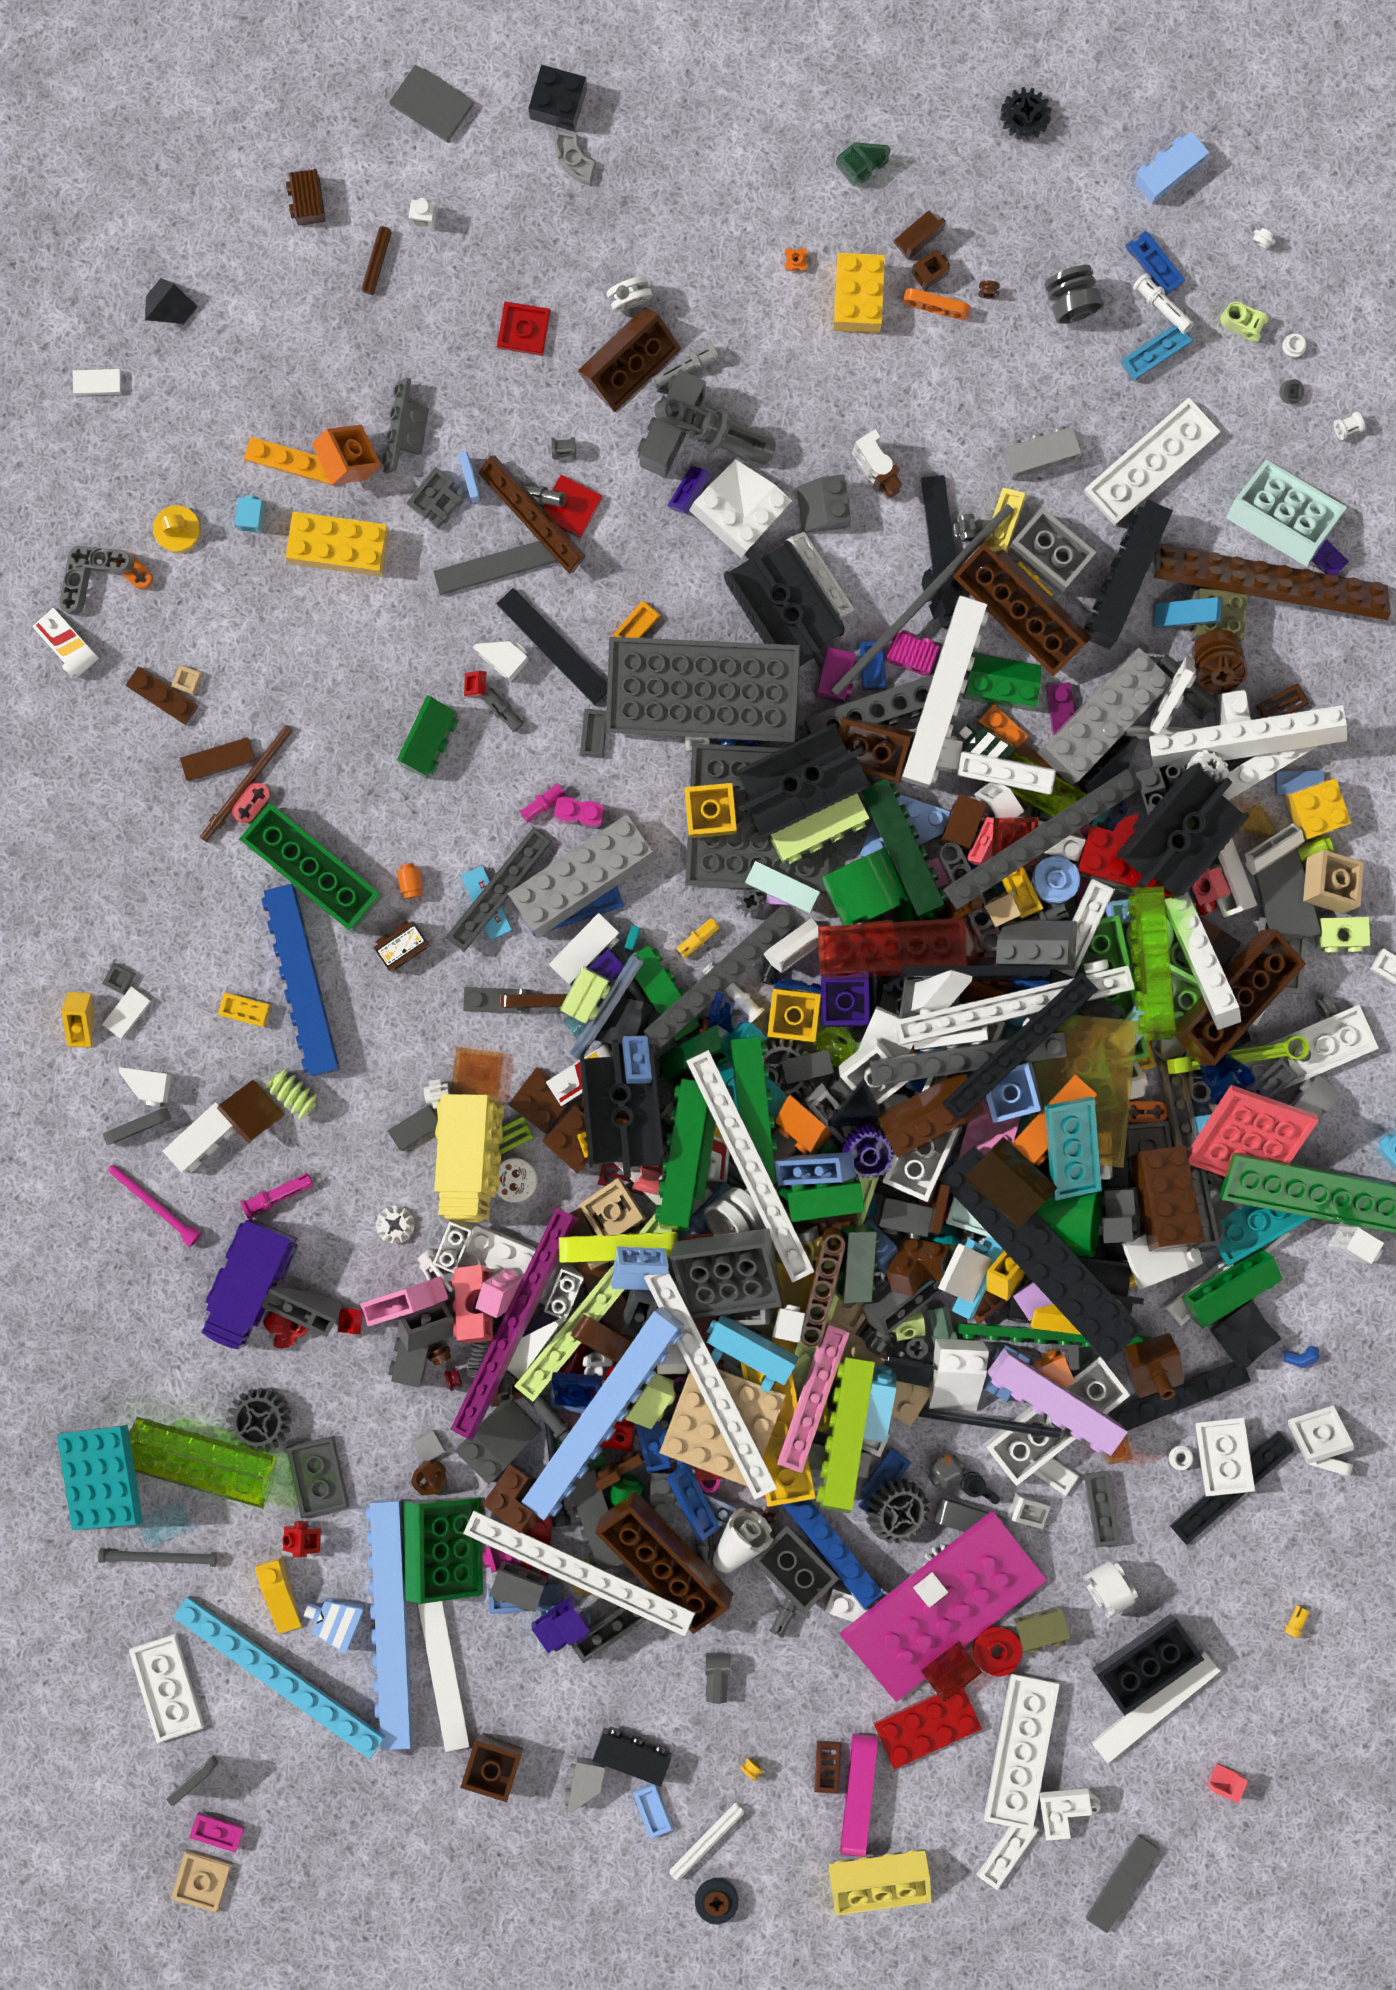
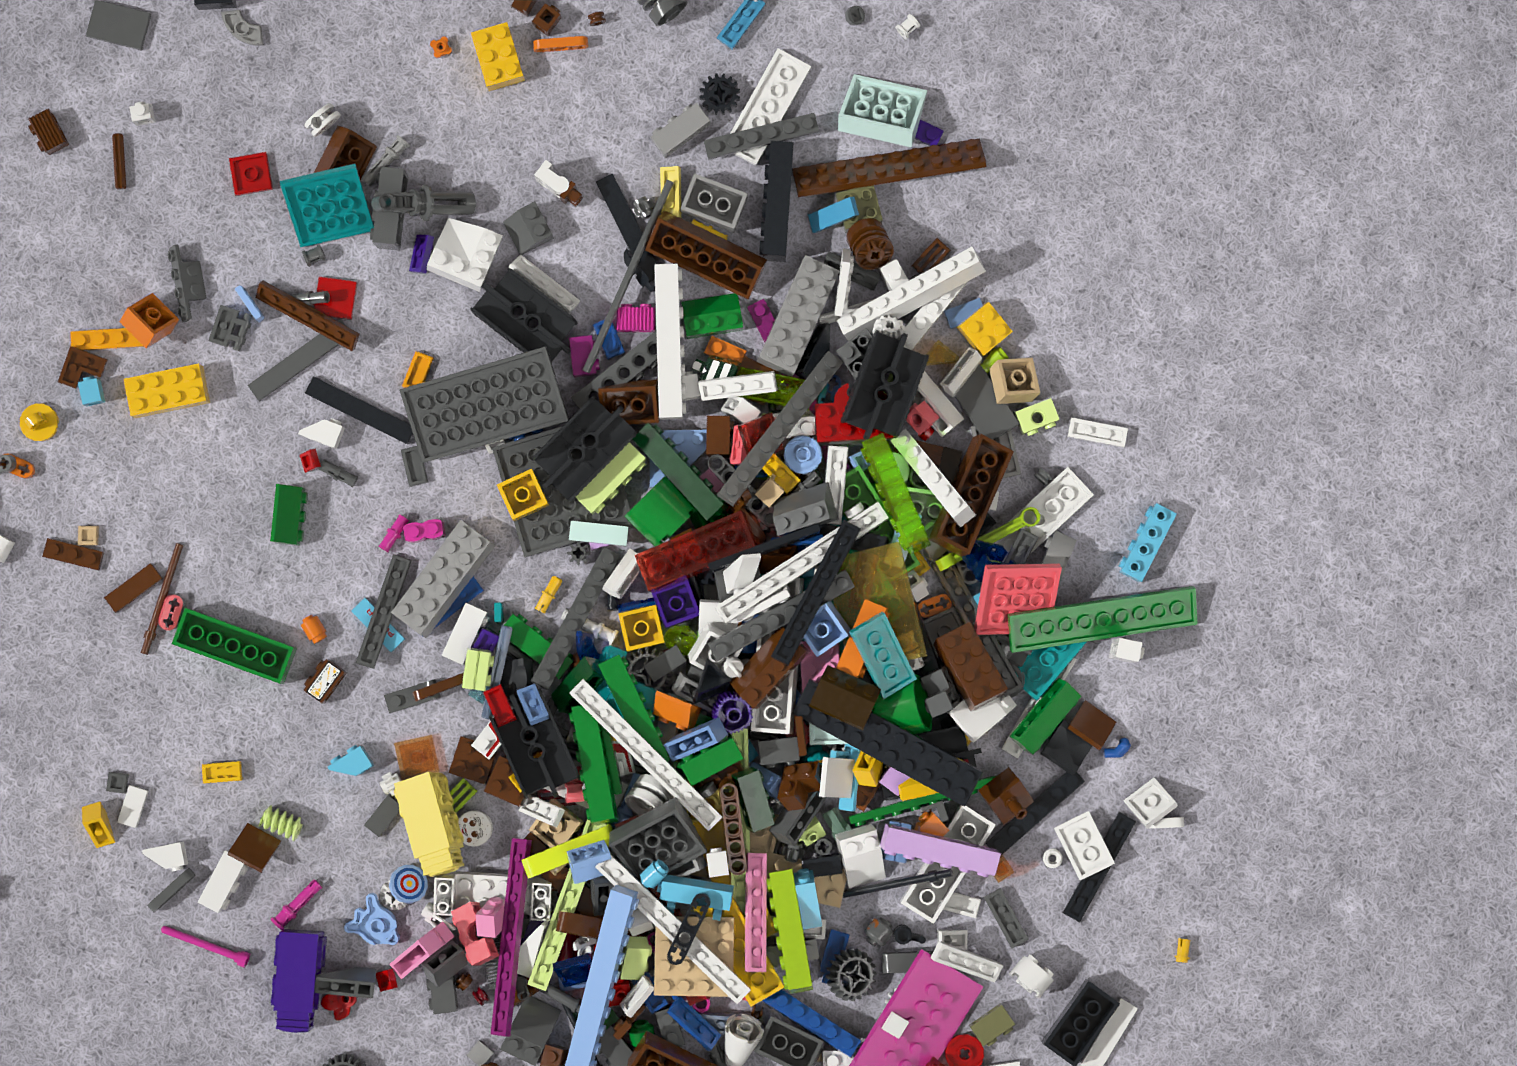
camera: 15 degrees left, 0 degrees up
(245, 475) = (77, 362): none -> reddish brown plate
(301, 980) = (257, 734): blue brick -> none
(359, 1250) = (375, 923): none -> light blue tile
(402, 1054) = (354, 763): none -> medium azure slope
(415, 1218) = (408, 884): none -> light blue tile
(596, 1047) = (499, 705): none -> red tile
(601, 393) = (327, 205): none -> teal plate
(602, 1188) = (542, 810): none -> white tile
(638, 1446) = (637, 996): none -> white tile
(710, 1310) = (654, 874): none -> medium azure brick
(727, 1387) = (690, 929): none -> black beam
(889, 1100) = (733, 667): none -> white tile
(1039, 1544) = (966, 961): none -> white plate
(1111, 427) = (726, 93): none -> black gear
(1134, 491) = (761, 136): none -> dark grey plate
(1283, 1318) = (1092, 725): none -> reddish brown tile

